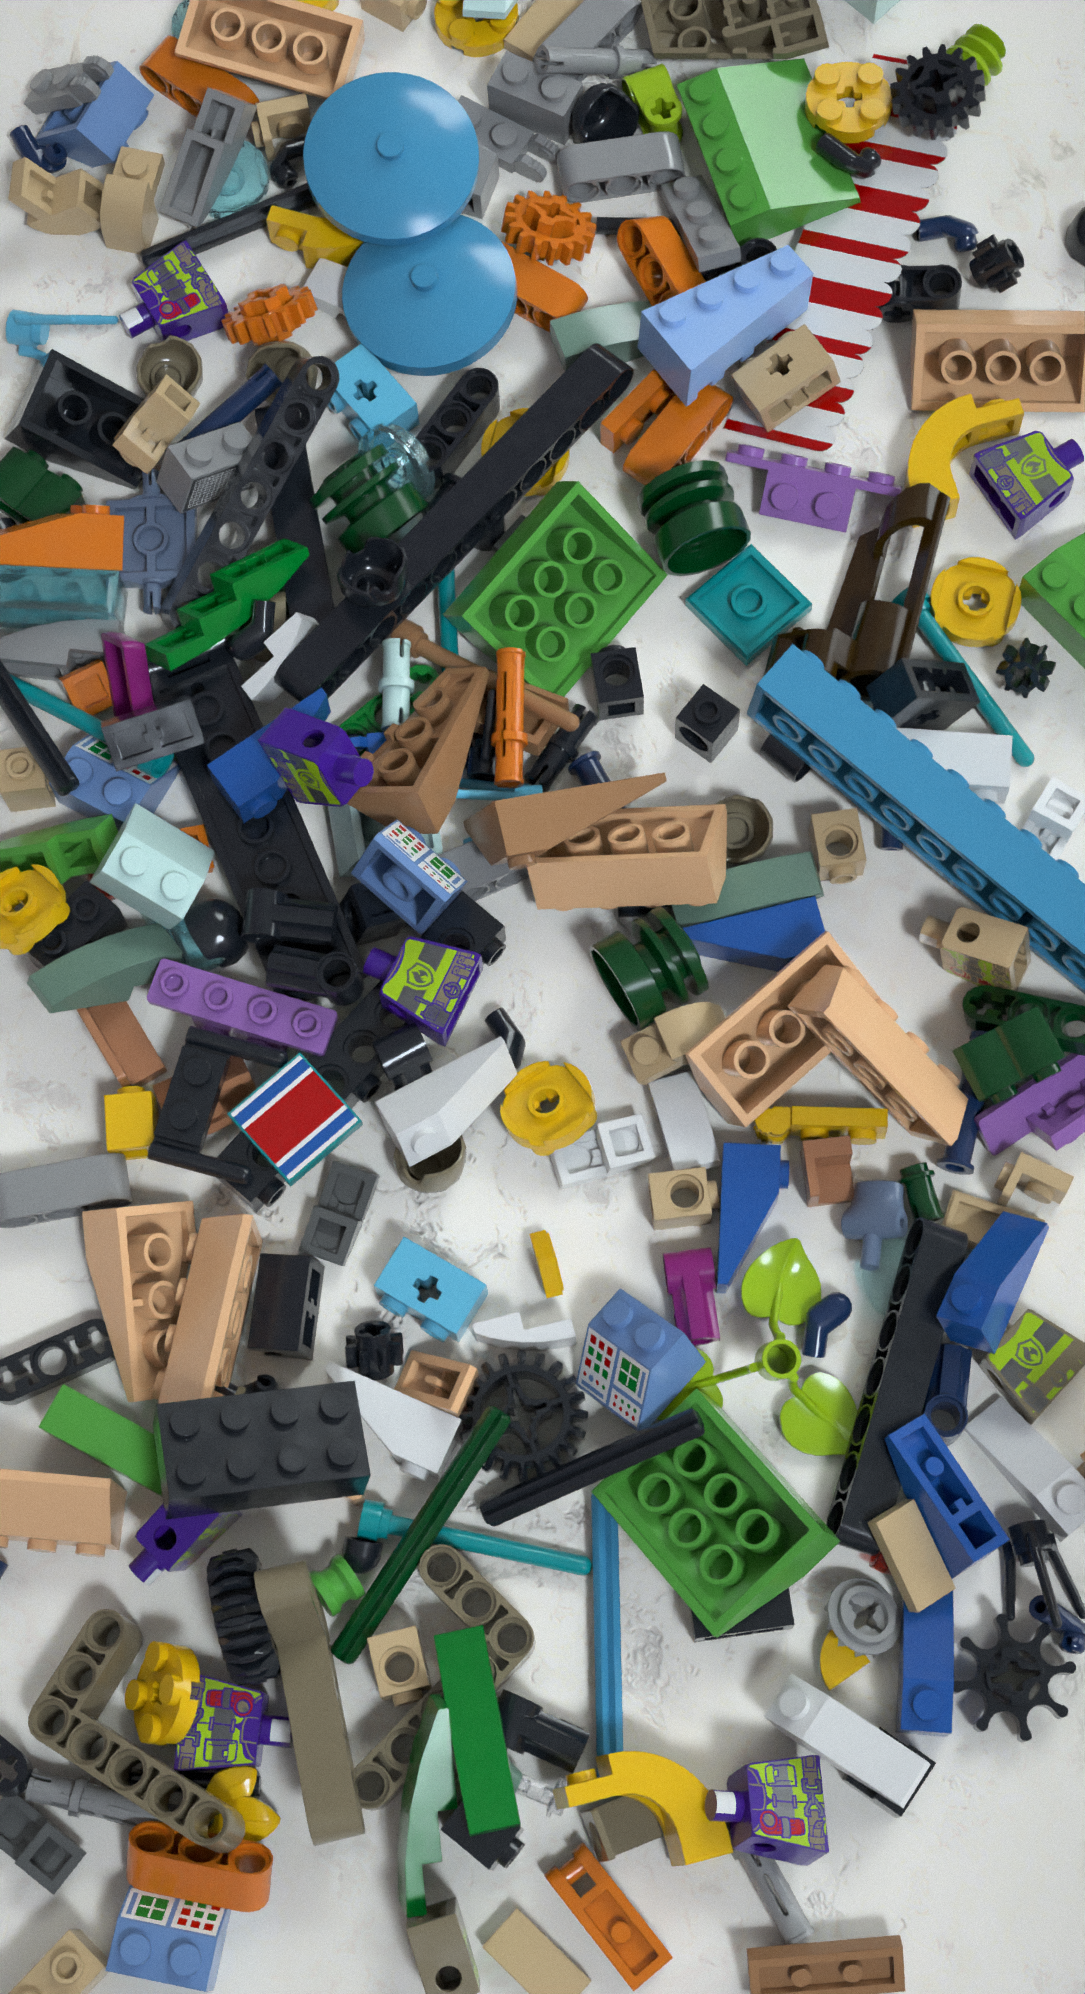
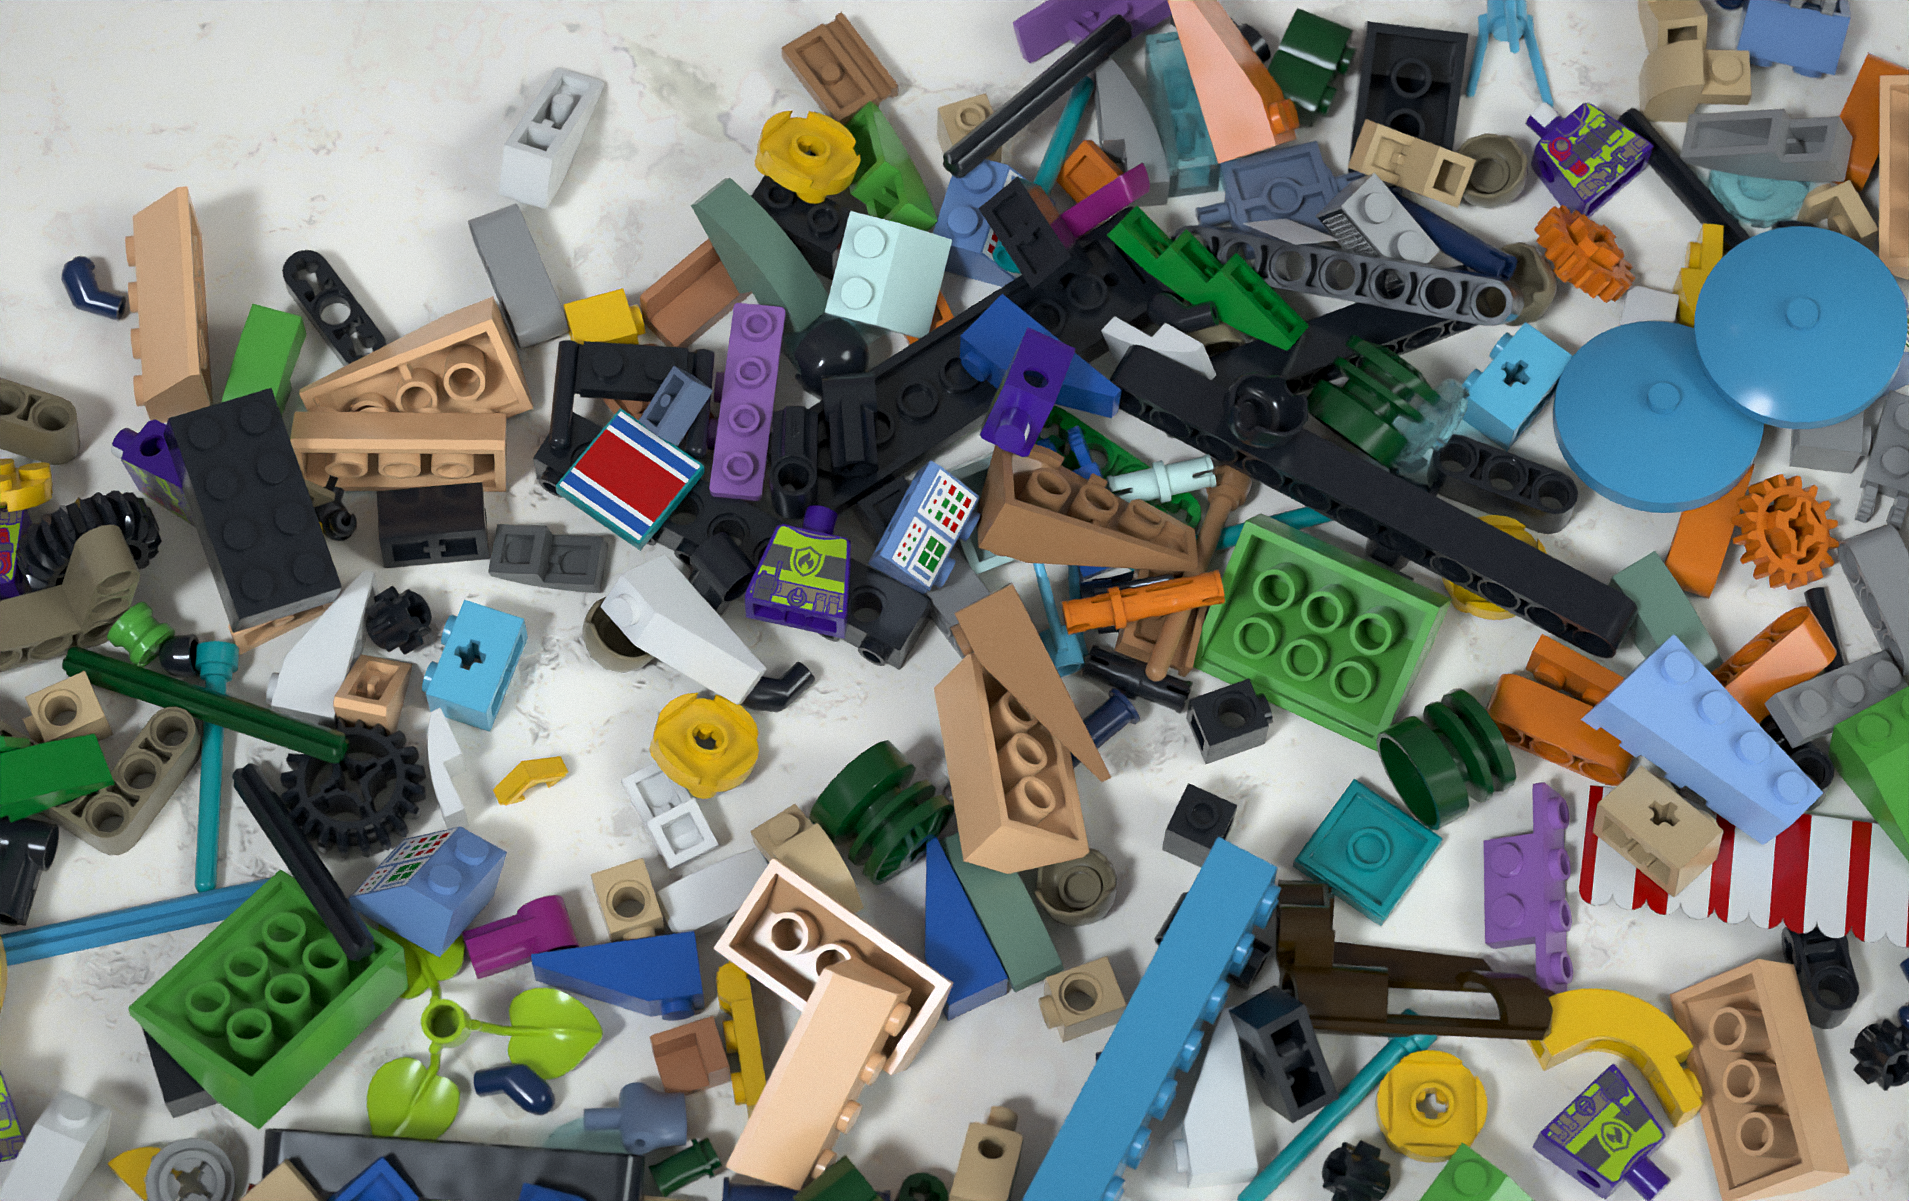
camera: 70 degrees right, 5 degrees down
(197, 529) = (1291, 231): none -> white sticker
(240, 1062) = (675, 405): none -> sand blue piece

